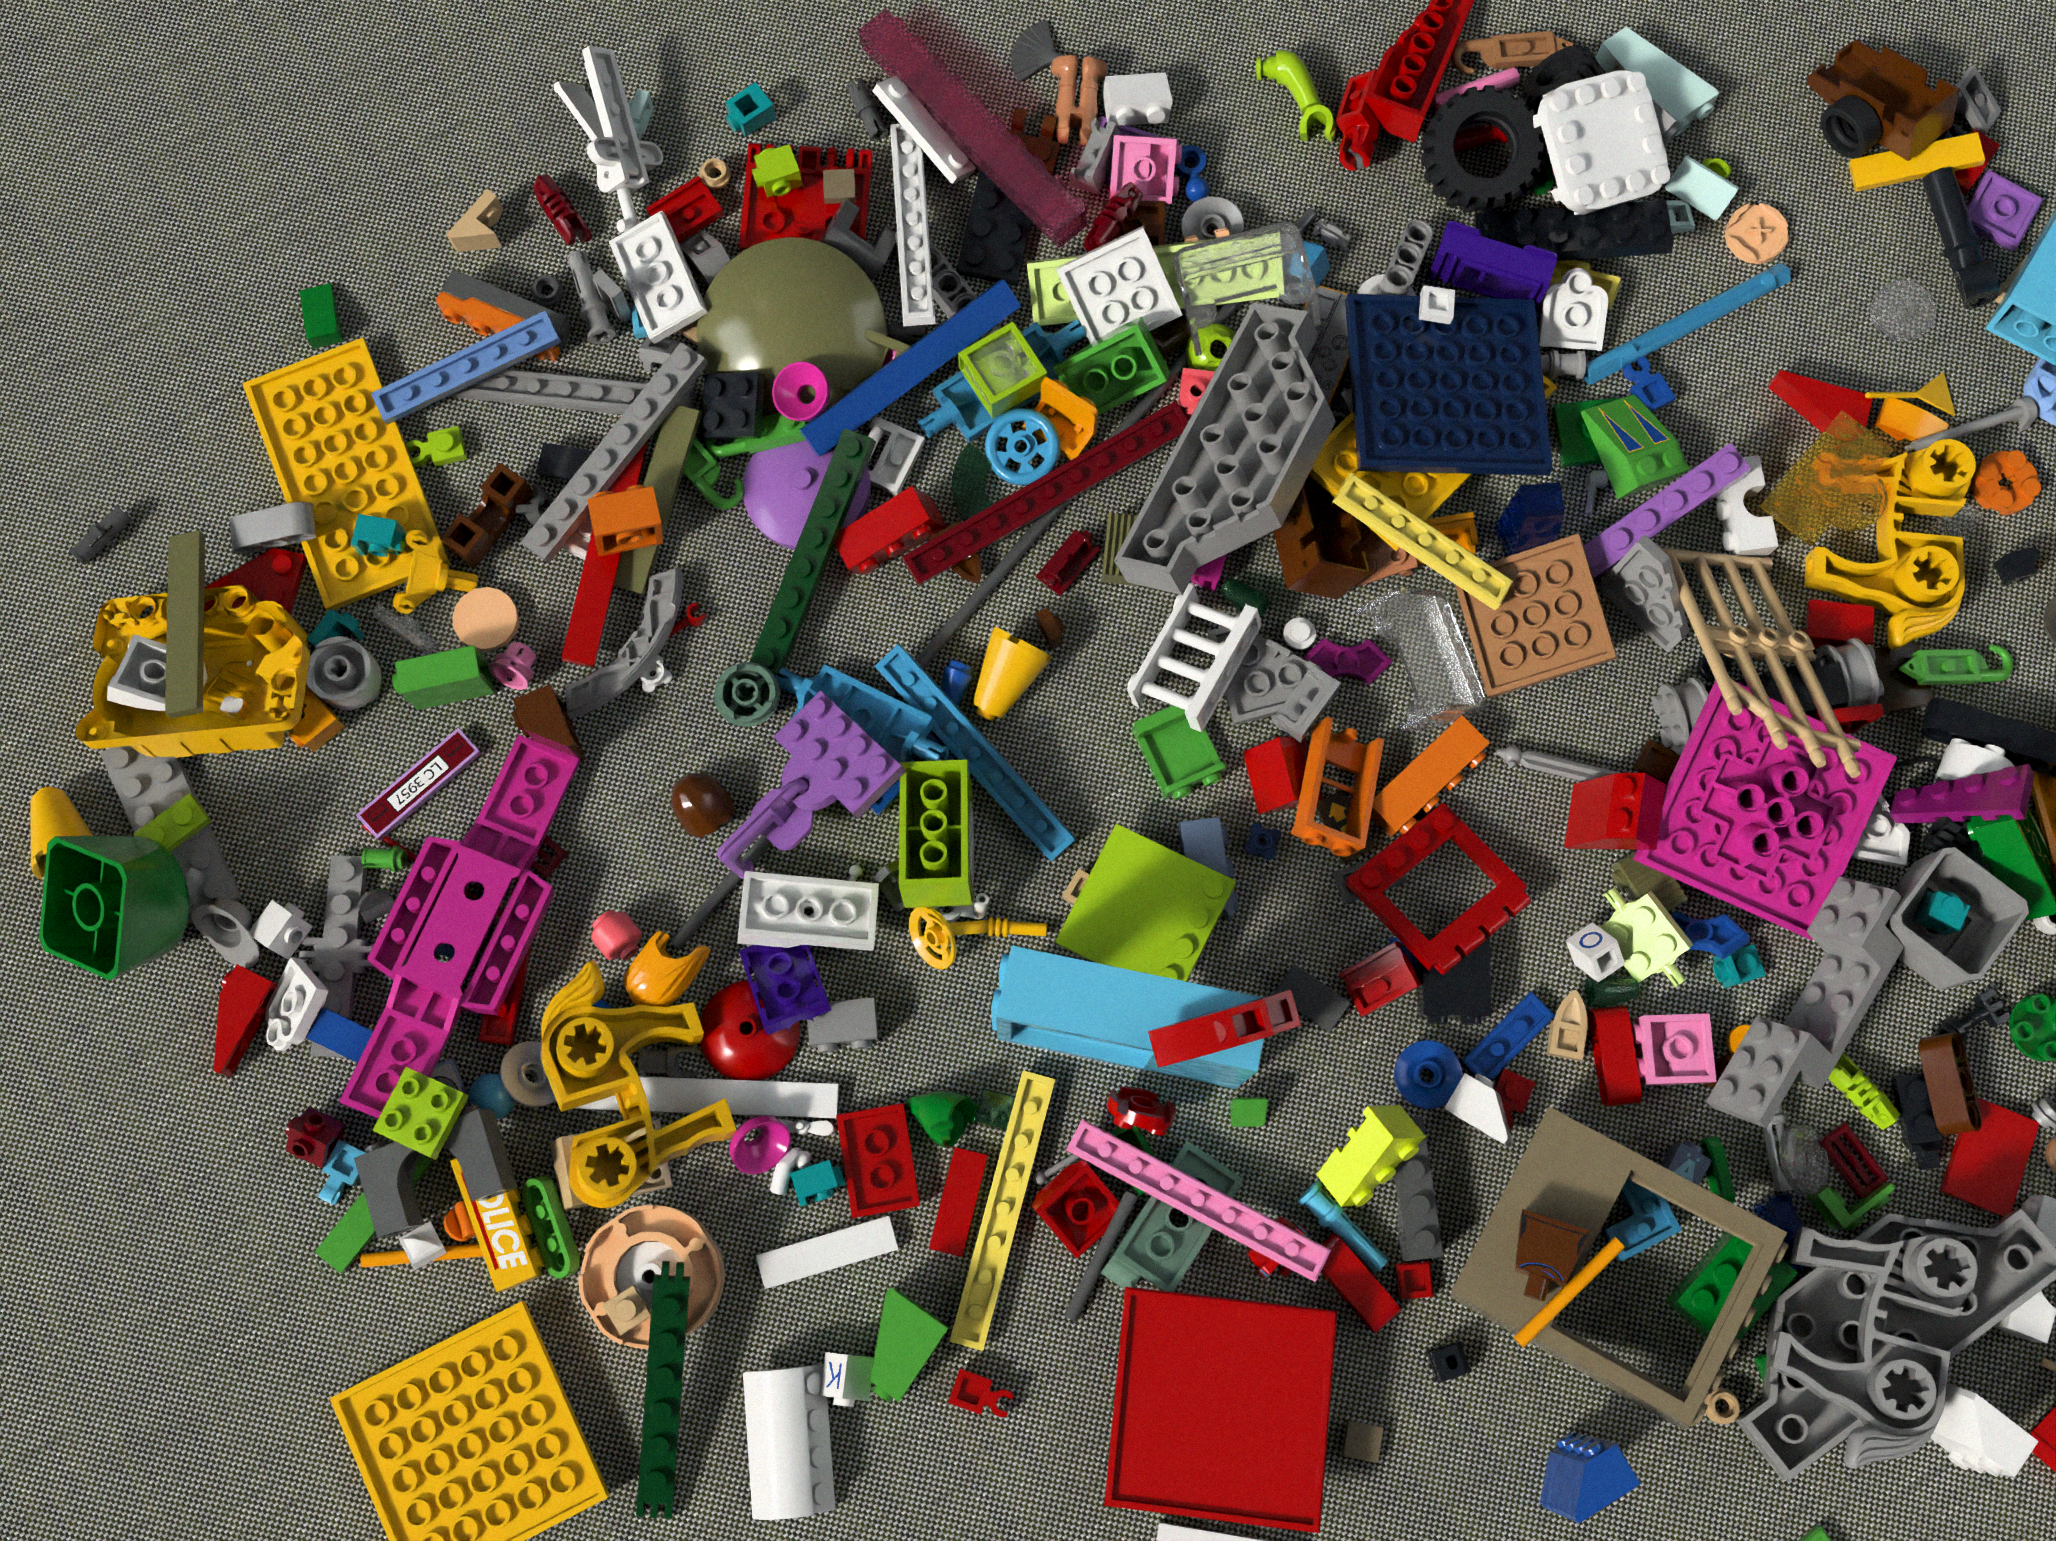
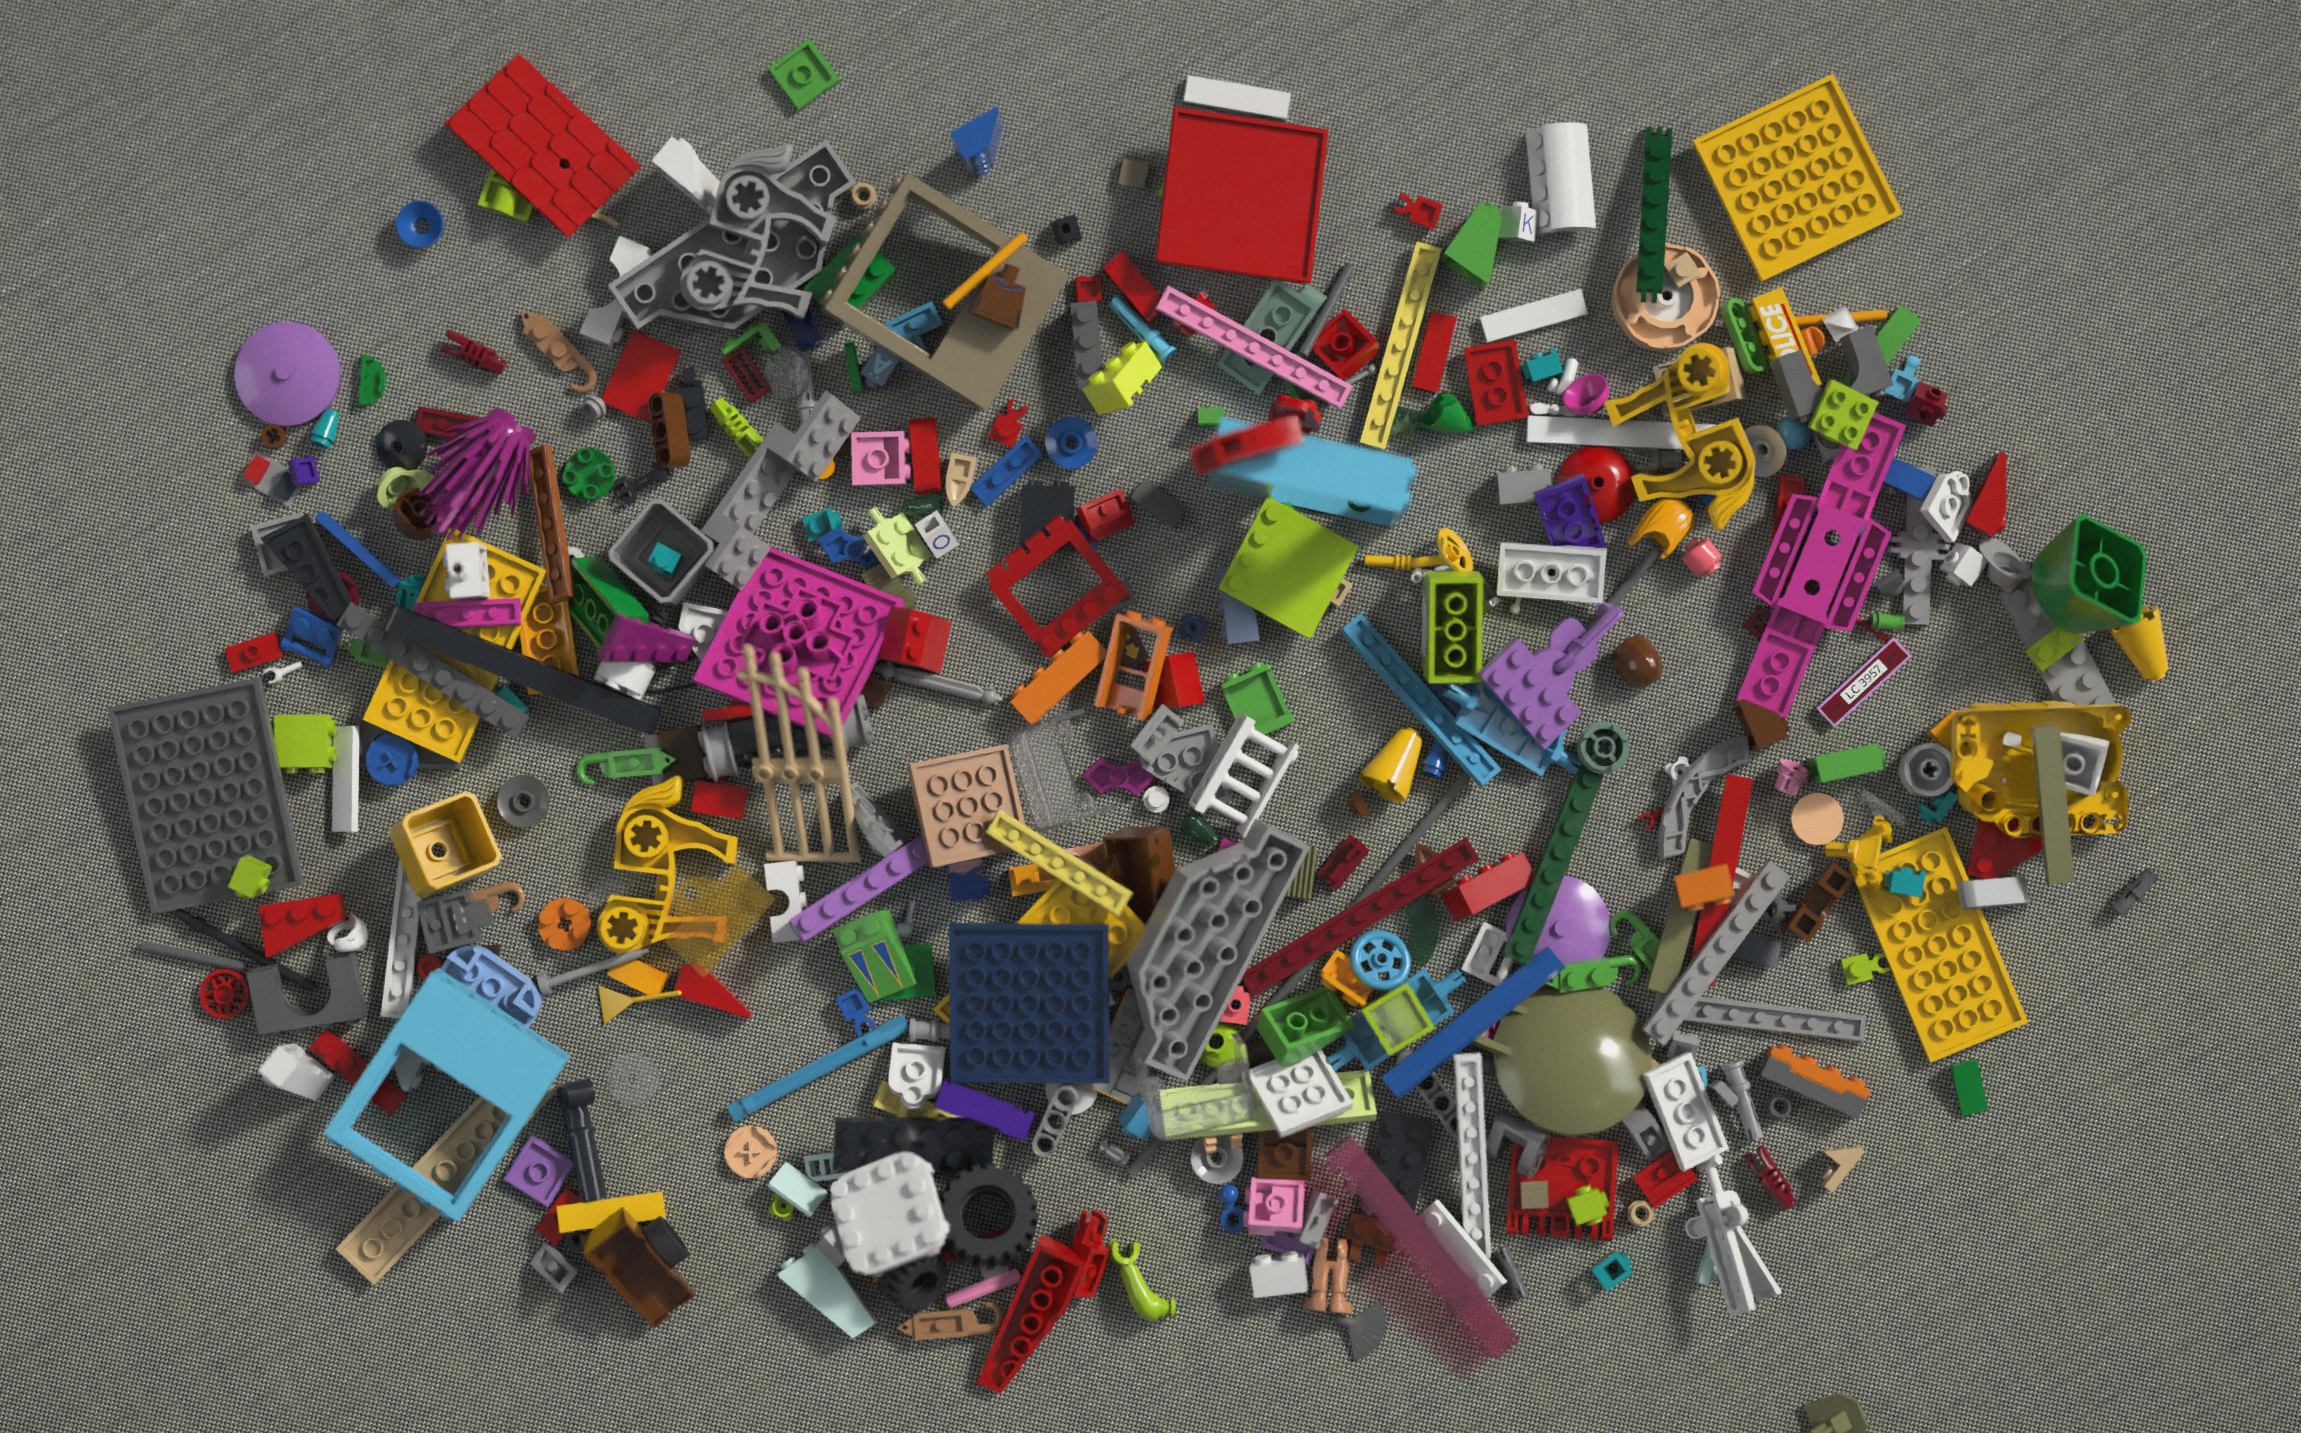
camera: 175 degrees left, 10 degrees up
(466, 367) = (1841, 1028): medium blue plate -> none
(732, 406) = (1620, 993): black plate -> none
(788, 388) = (1573, 992): dark pink piece -> none
(1113, 216) = (1302, 1156): dark red hinge -> none
(1436, 304) = (1036, 1070): white plate -> none
(1480, 1107) = (1033, 414): white slope -> none
(2017, 566) = (565, 849): black piece -> none

